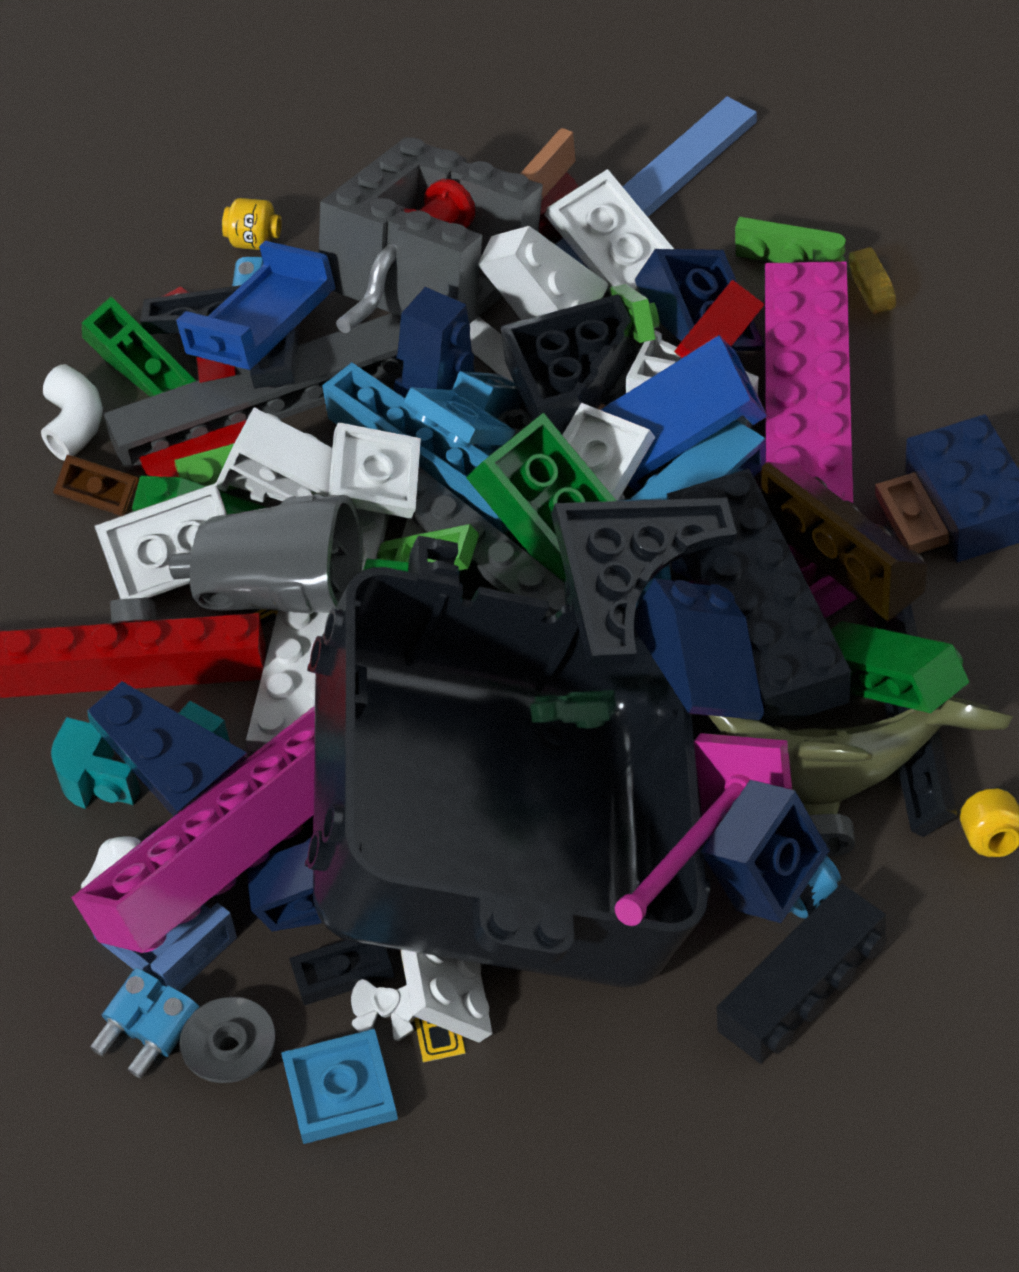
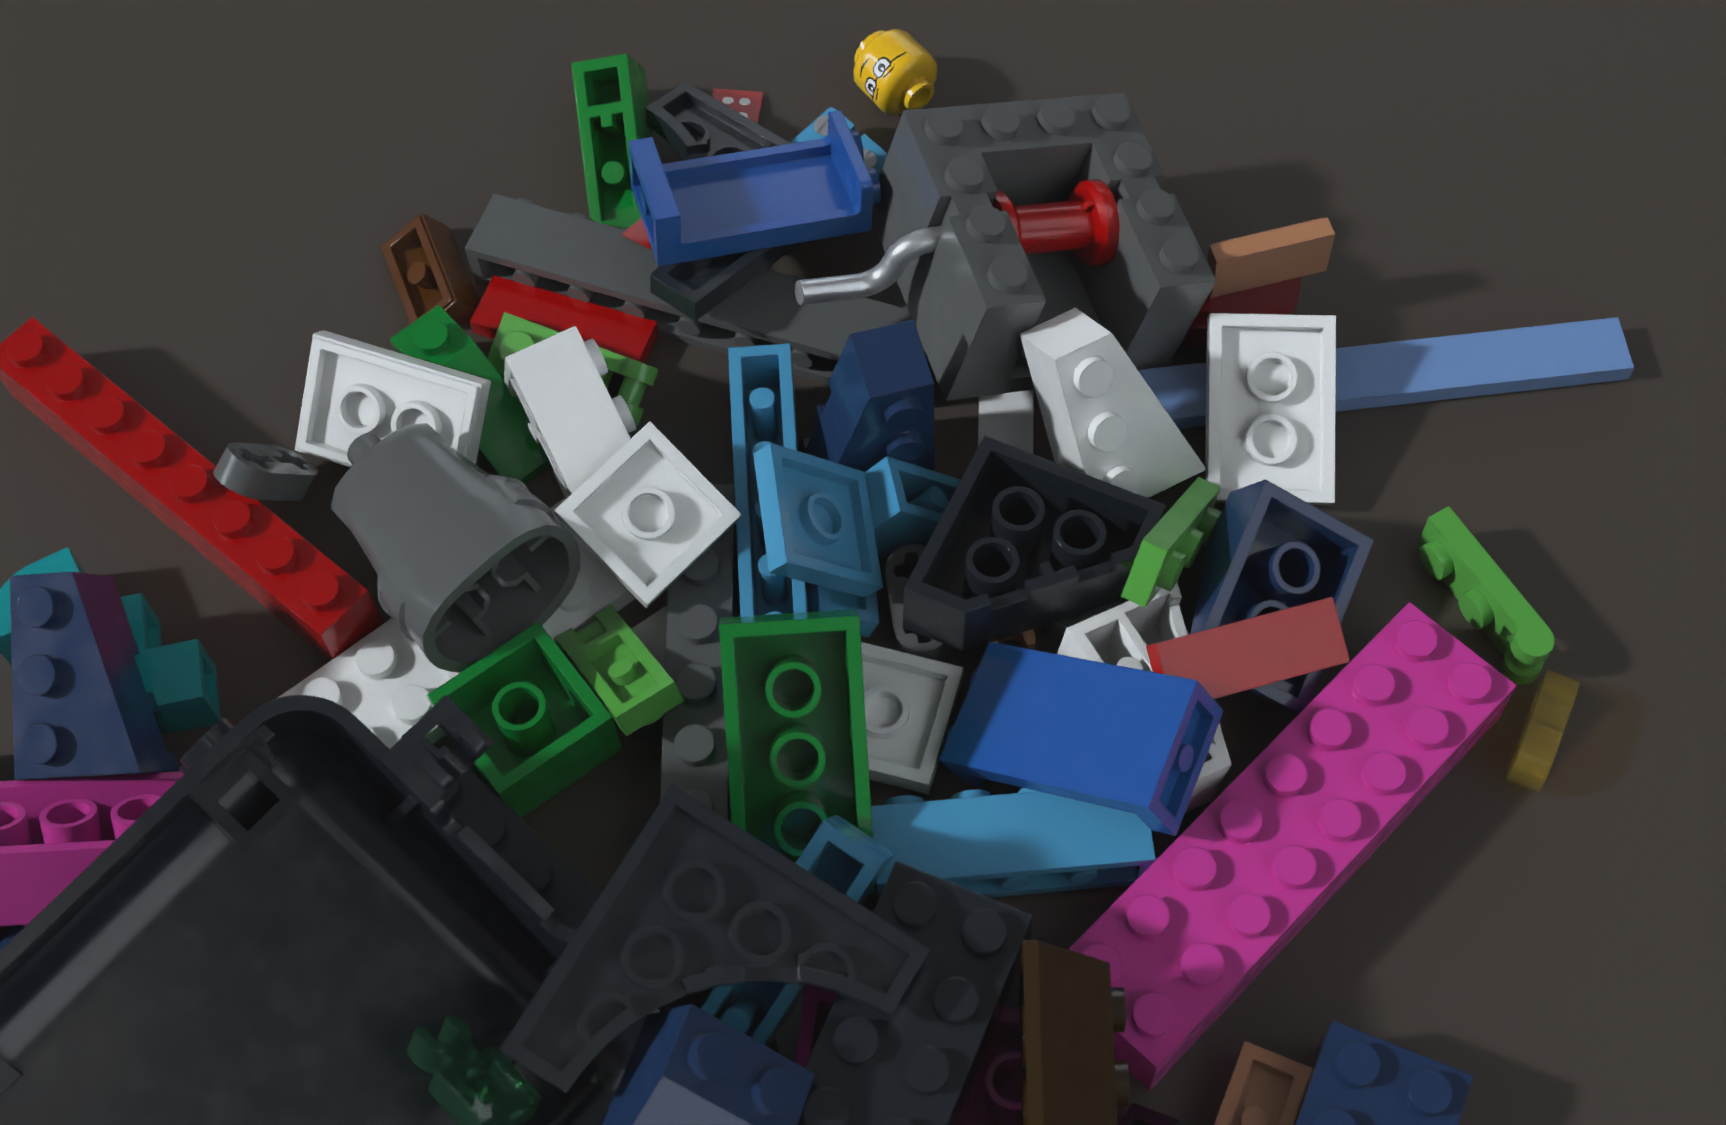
camera: 40 degrees right, 10 degrees up
(79, 413) = (496, 166): white cylinder -> none
(608, 446) = (931, 708): white plate -> none

